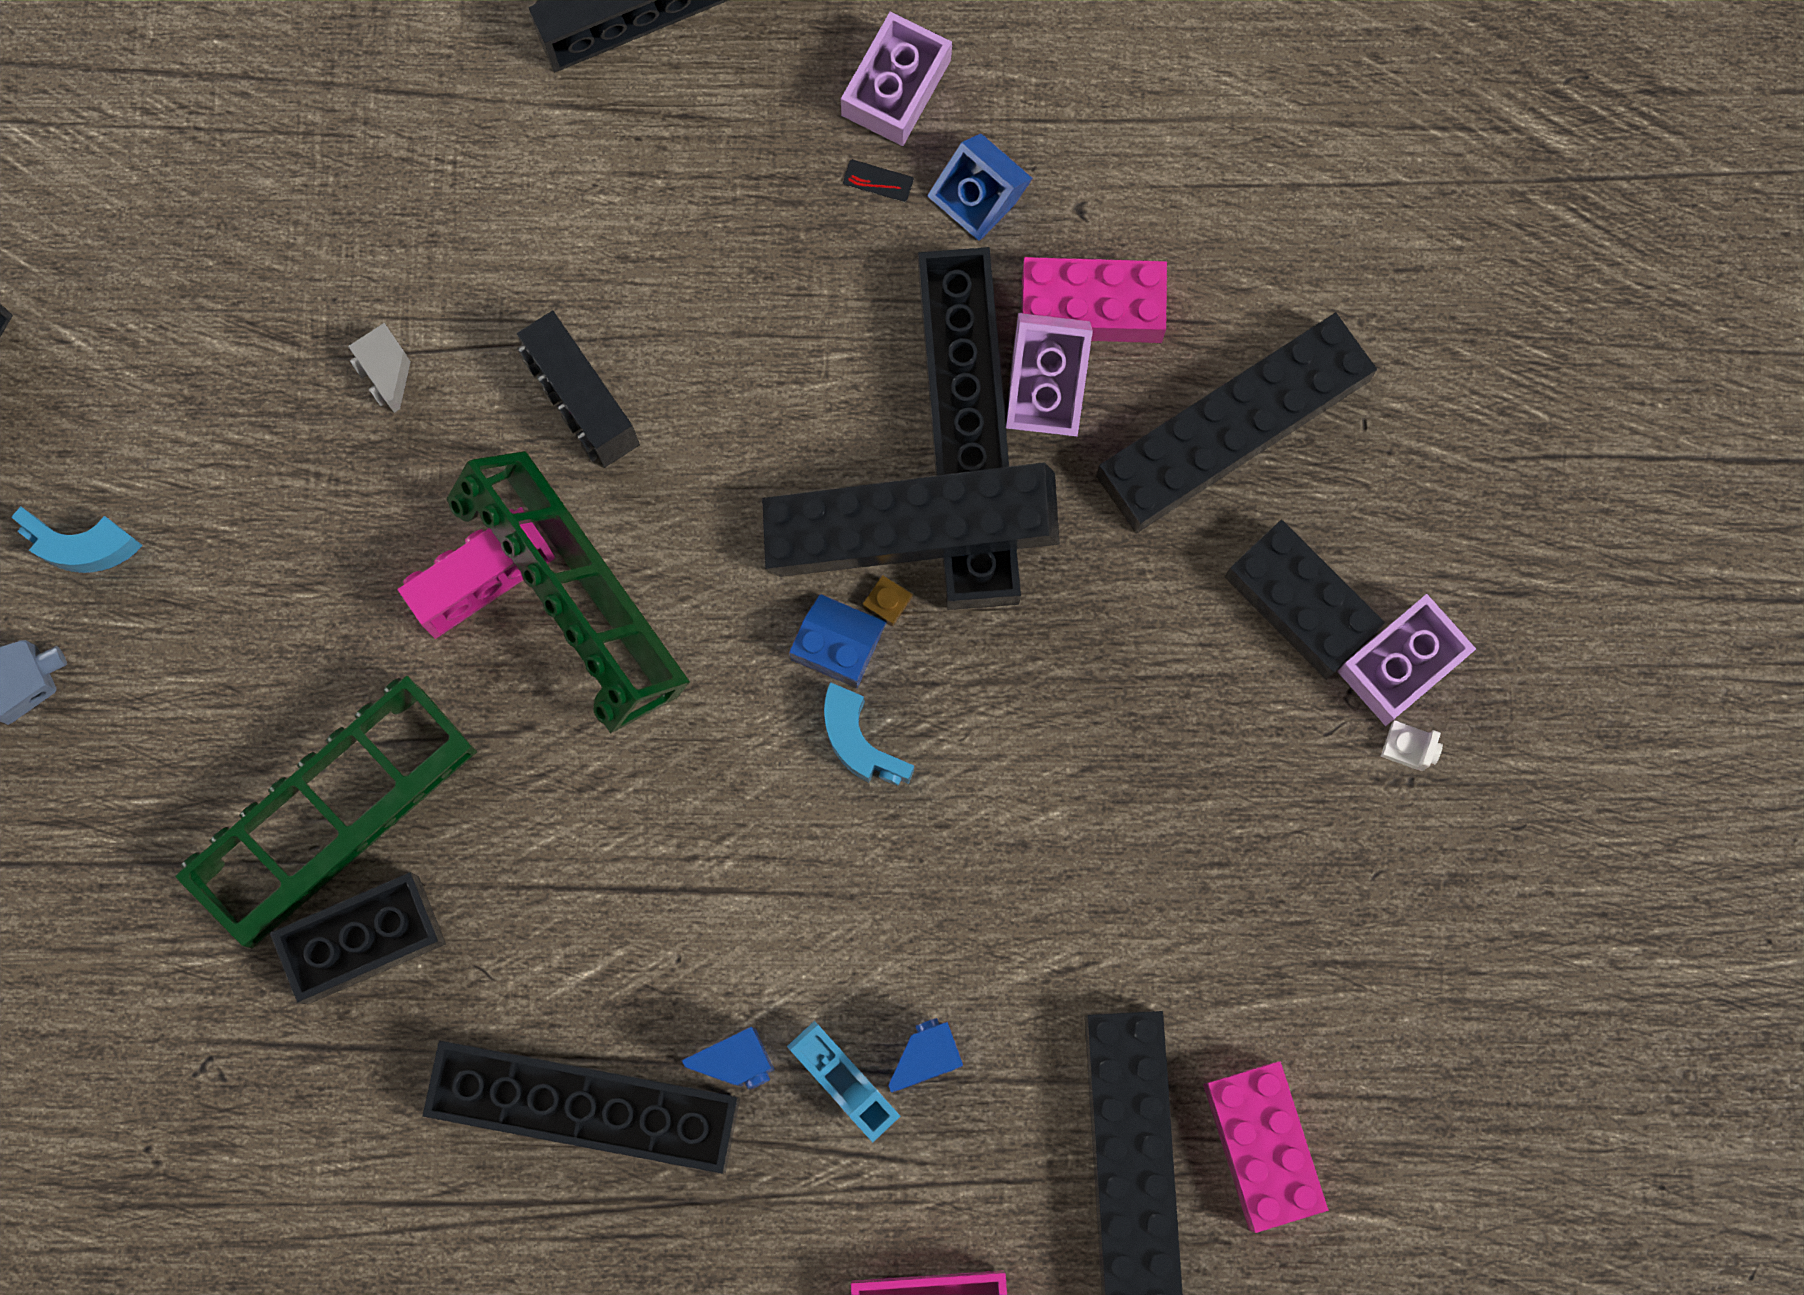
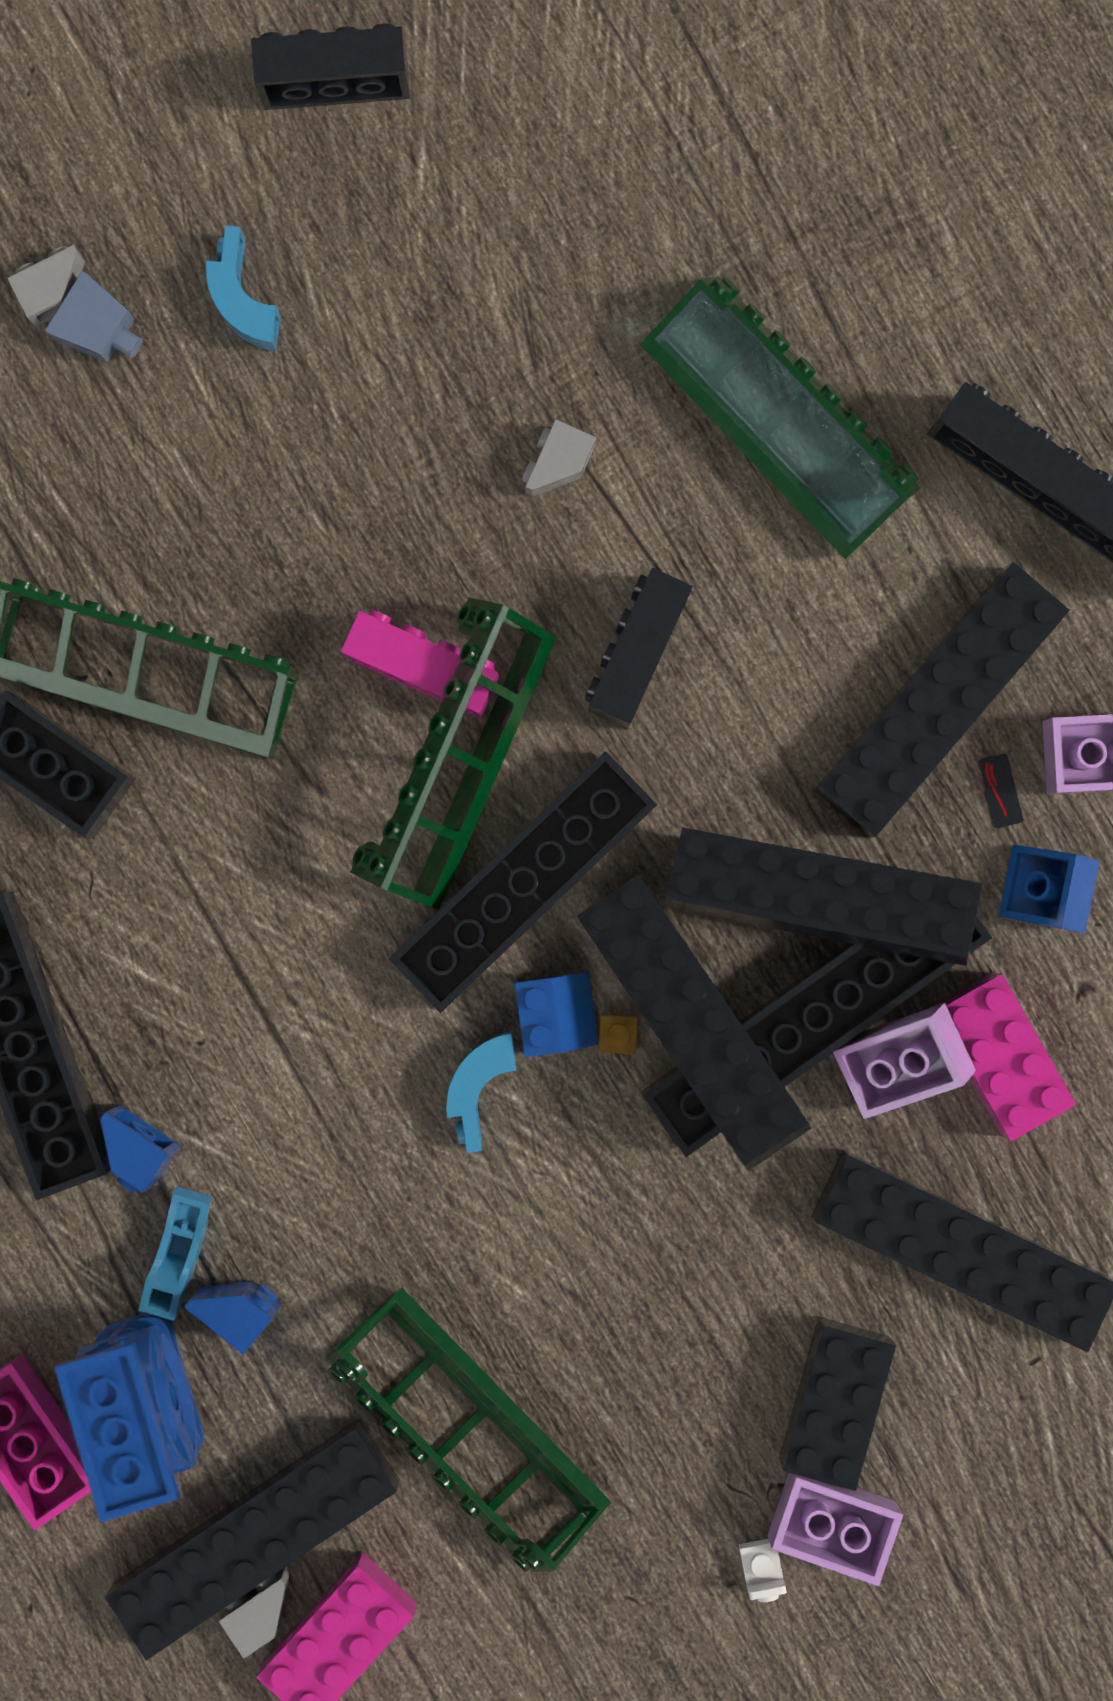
camera: 60 degrees right, 10 degrees up
(461, 171) = (780, 414): none -> window
(710, 599) = (522, 882): none -> black brick
(774, 182) = (941, 700): none -> black brick
(872, 356) = (824, 896): none -> black brick
(955, 1186) = (132, 1414): none -> blue brick
(1136, 890) = (490, 1403): none -> dark green window
(1204, 1205) = (256, 1615): none -> light grey slope

